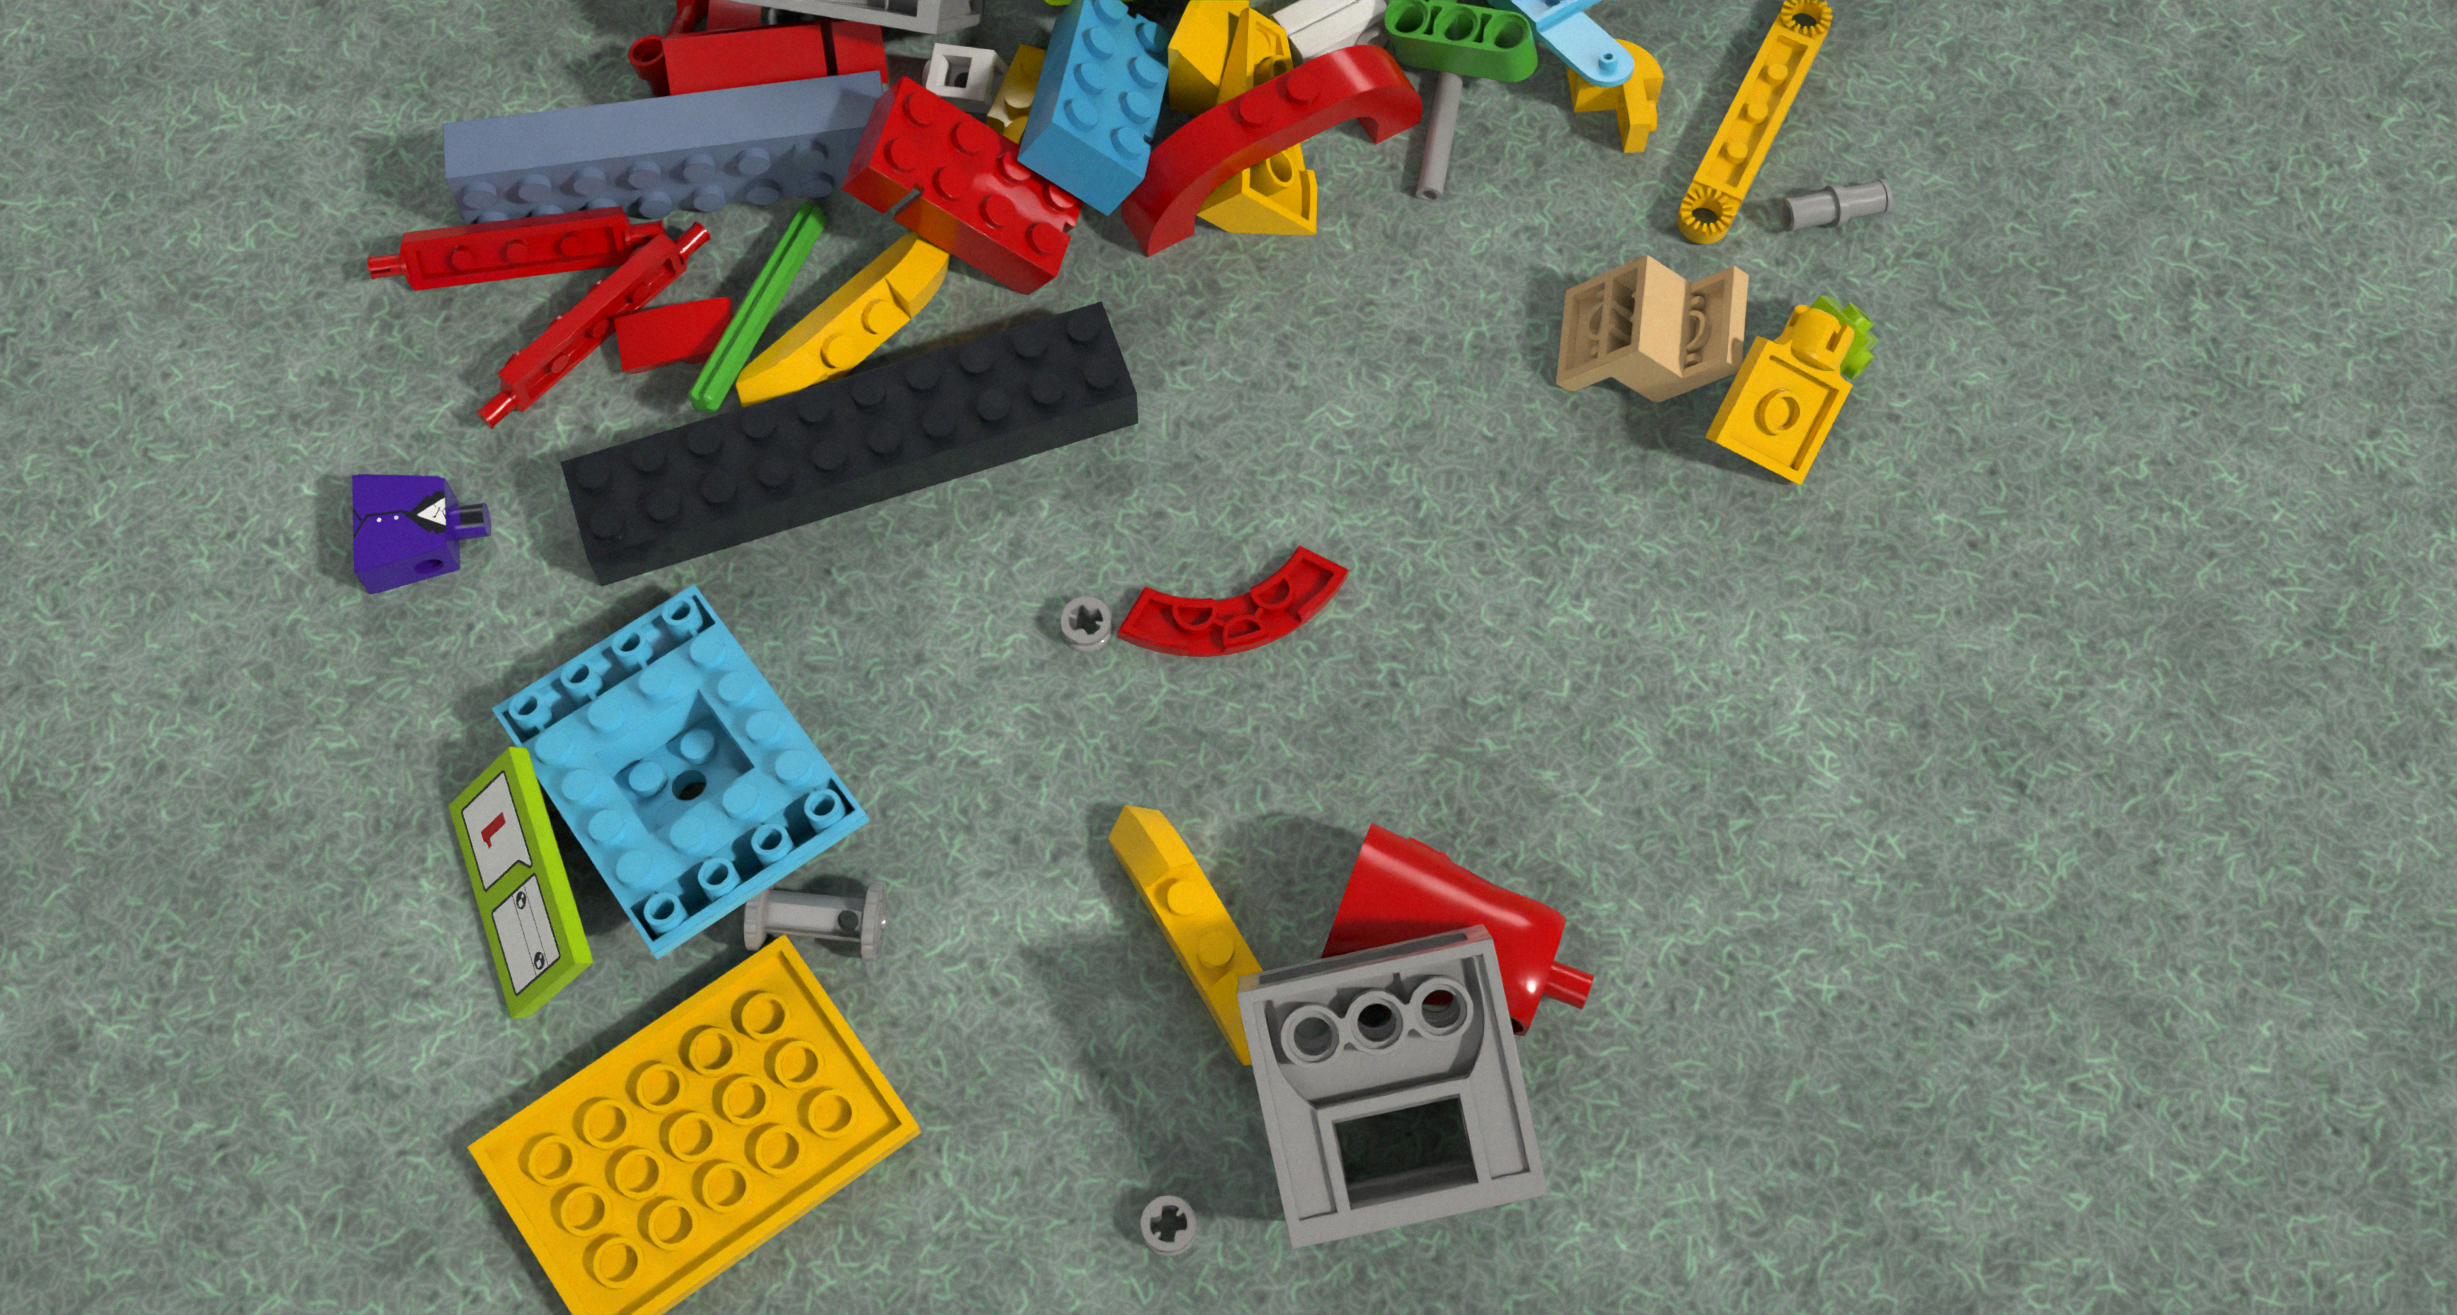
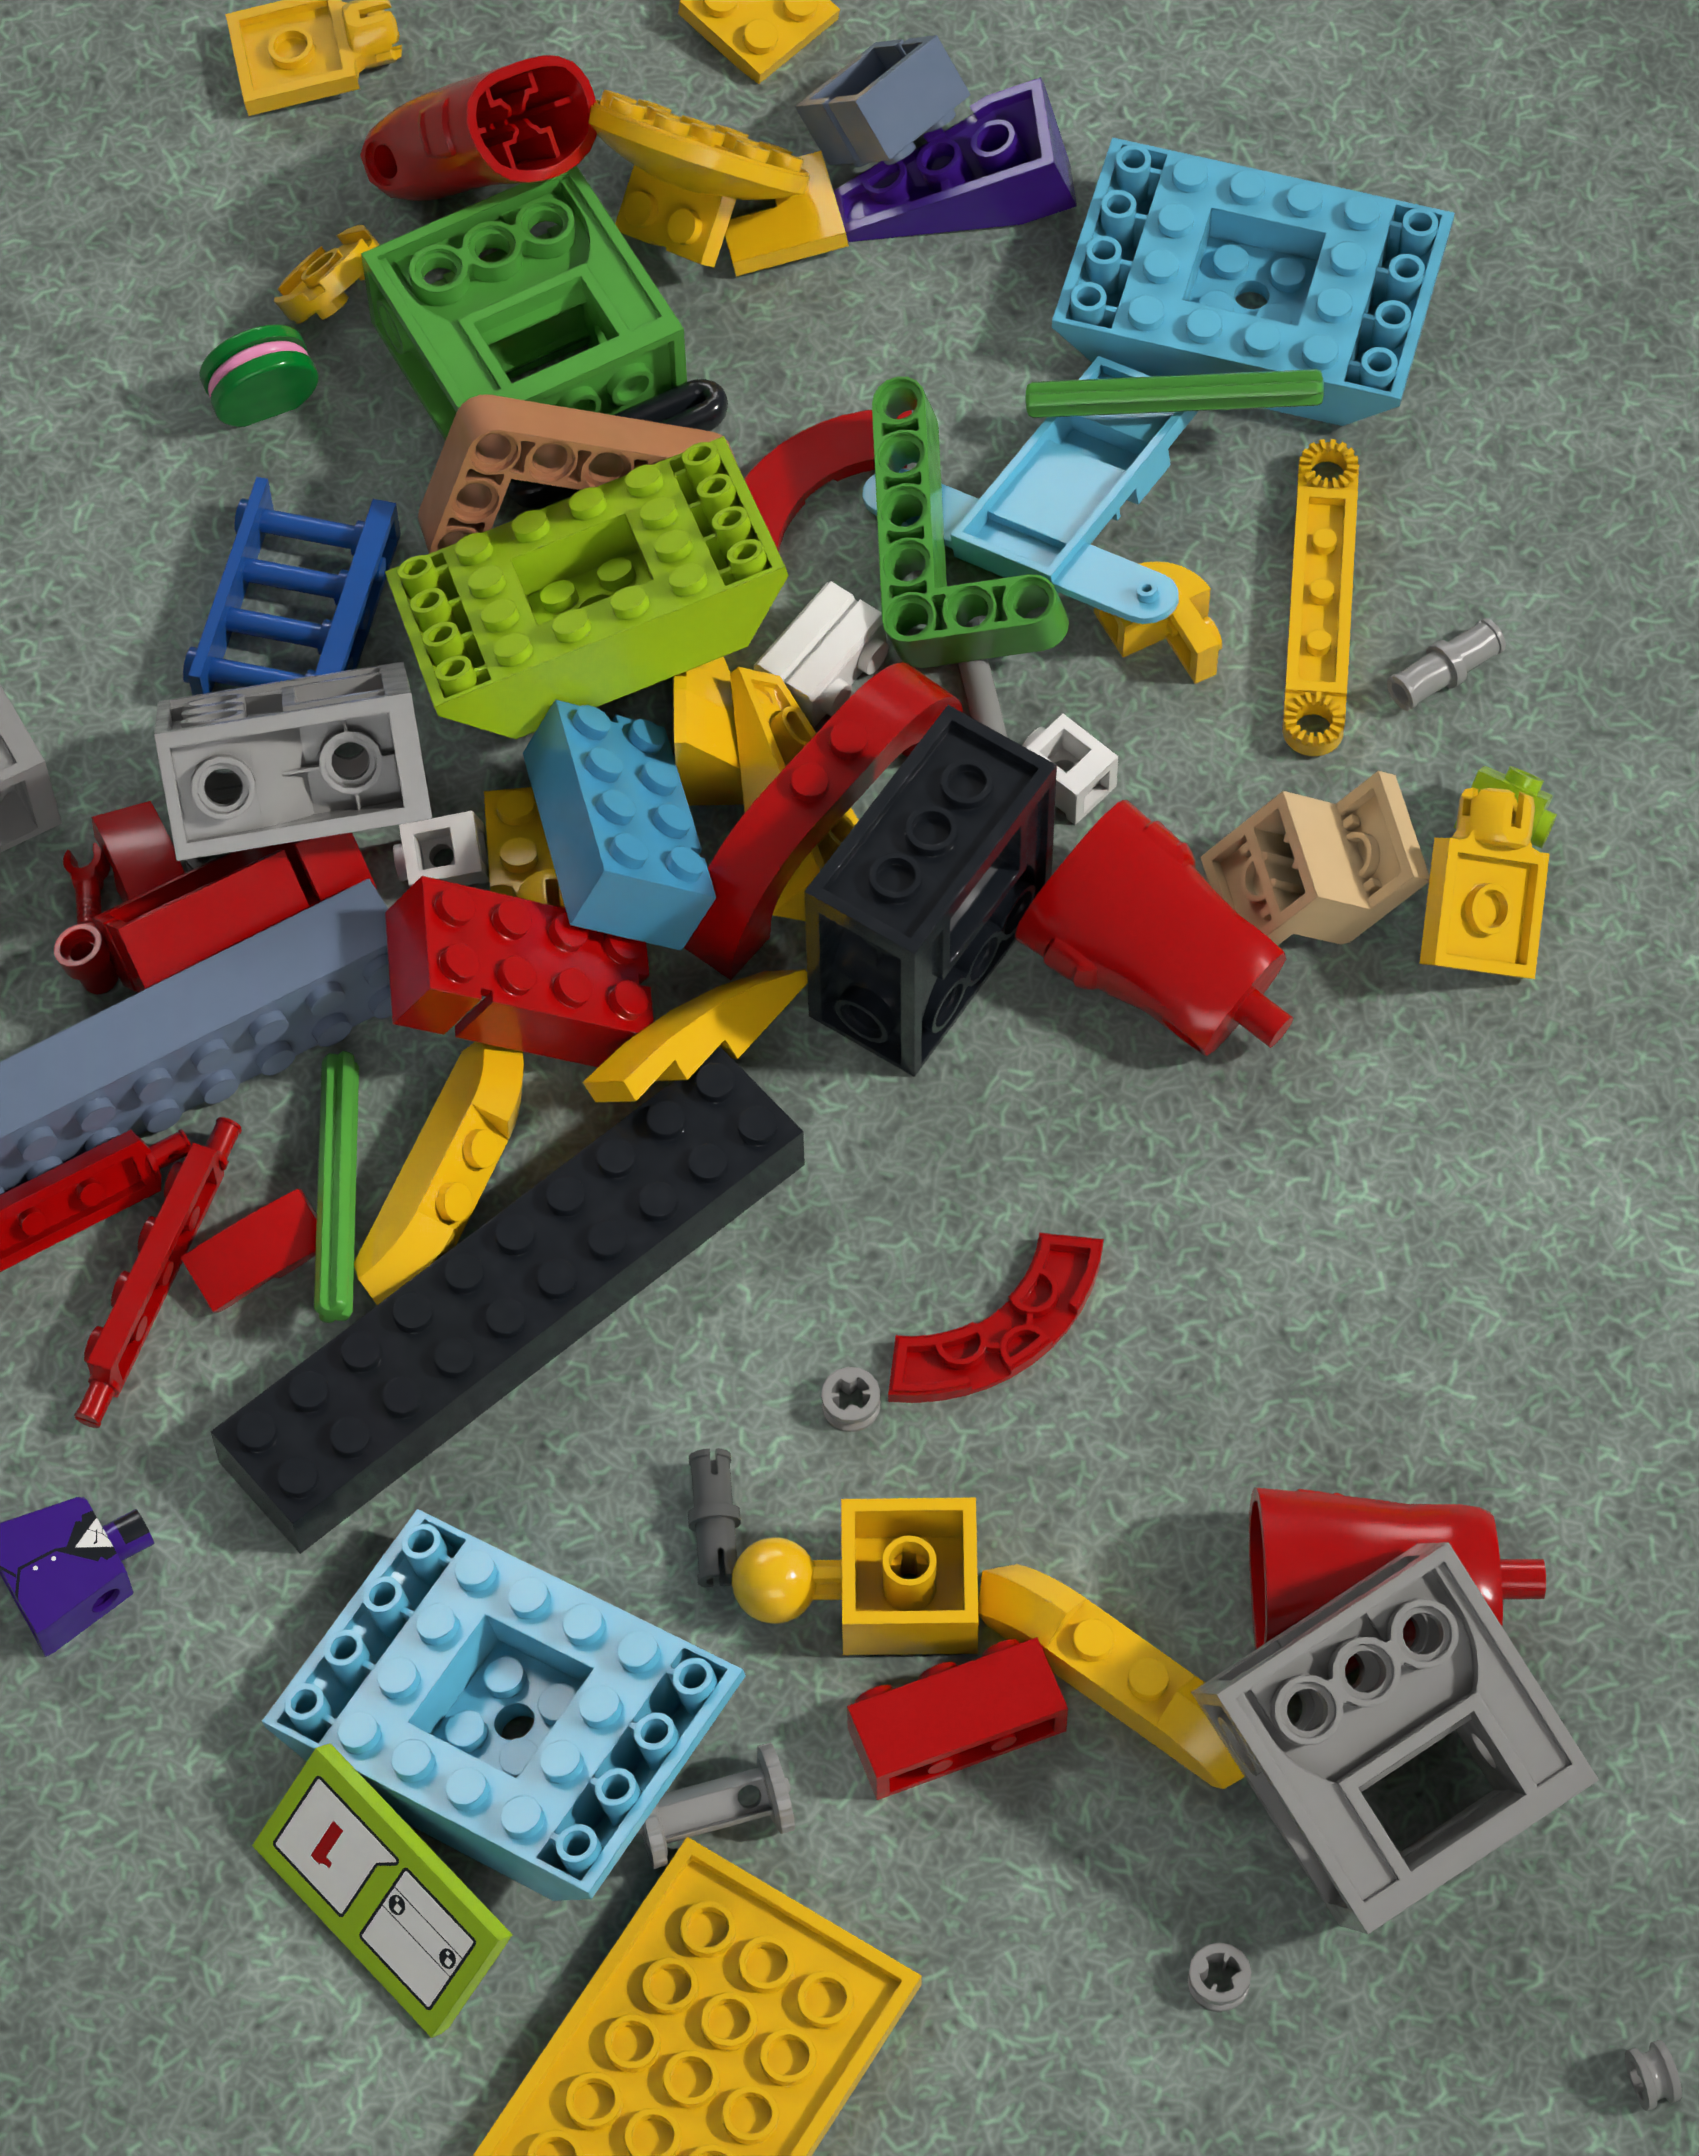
camera: 20 degrees left, 5 degrees down
(931, 679) = (713, 1516): none -> dark grey pin
(1038, 758) = (880, 1608): none -> yellow brick
(1047, 918) = (956, 1716): none -> red brick
(1071, 286) = (690, 1033): none -> yellow slope
(1319, 230) = (929, 889): none -> black piece
(1488, 182) = (1089, 765): none -> white brick
(1493, 333) = (1153, 932): none -> red torso

